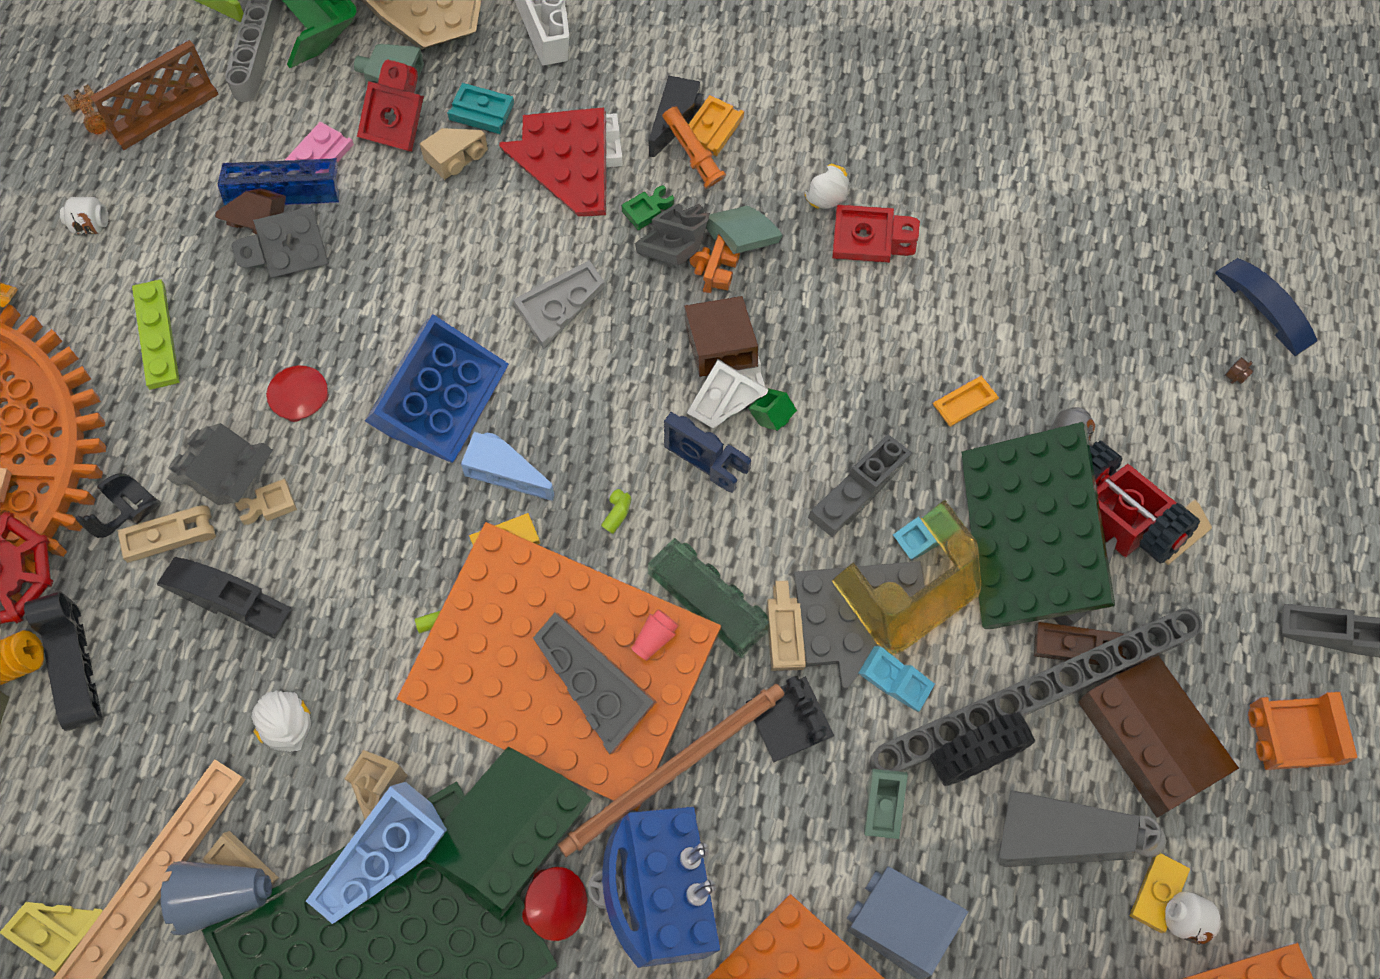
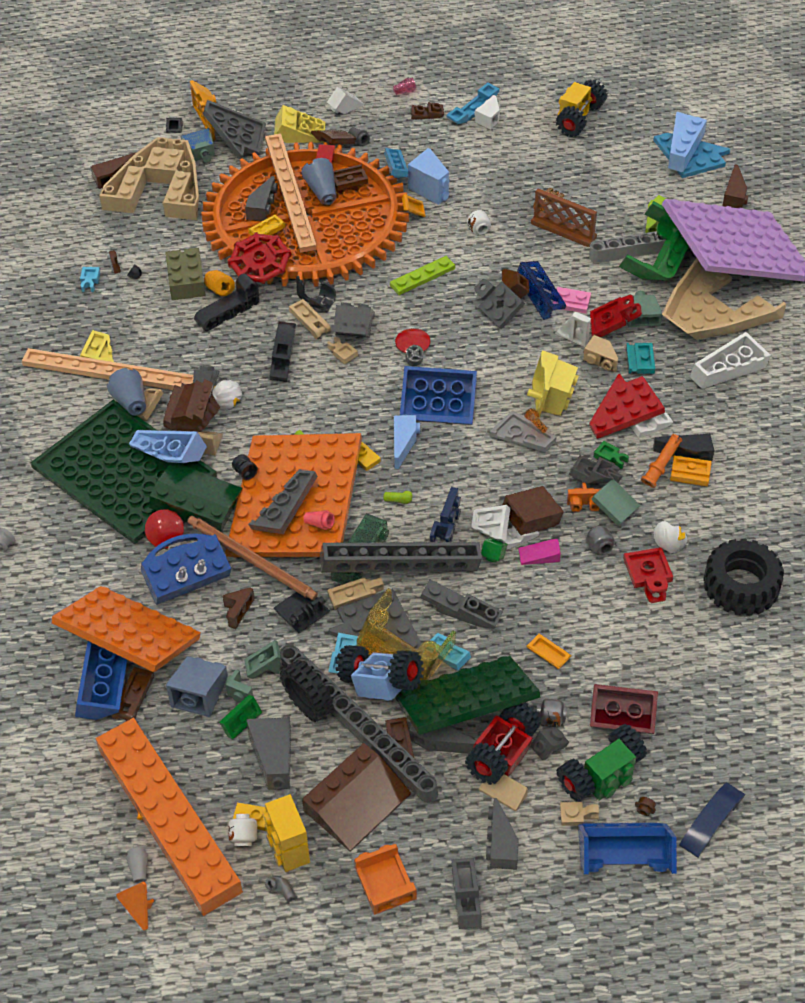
camera: 75 degrees right, 15 degrees down
(230, 746) = (207, 373): none -> dark grey slope
(303, 788) = (191, 407): none -> reddish brown slope
(337, 390) = (414, 351): none -> dark grey wheel
(393, 162) = (576, 329): none -> white wing
(479, 728) = (244, 466): none -> black wheel
(496, 228) = (552, 384): none -> light yellow piece
(531, 278) = (532, 415): none -> clear orange hinge
(754, 810) = (238, 605): none -> reddish brown slope
(763, 543) = (400, 557): none -> dark grey brick
(791, 354) = (540, 553): none -> dark pink slope
(800, 271) = (600, 540): none -> flat silver head
(918, 158) = (740, 596): none -> black tyre
(932, 859) = (236, 689): none -> sand green bracket
(972, 630) = (379, 673): none -> brick
(986, 881) = (236, 719): none -> green plate
(1094, 341) = (621, 705): none -> dark red slope
(1123, 443) = (548, 741): none -> dark grey bracket
(1190, 388) = (606, 769): none -> brick
(1231, 457) = (574, 814): none -> tan plate
(1239, 848) = (286, 833): none -> yellow piece
(1268, 557) = (504, 842): none -> dark grey slope
(1284, 884) = (282, 886): none -> flat silver arm
(1289, 403) = (627, 844): none -> blue windscreen

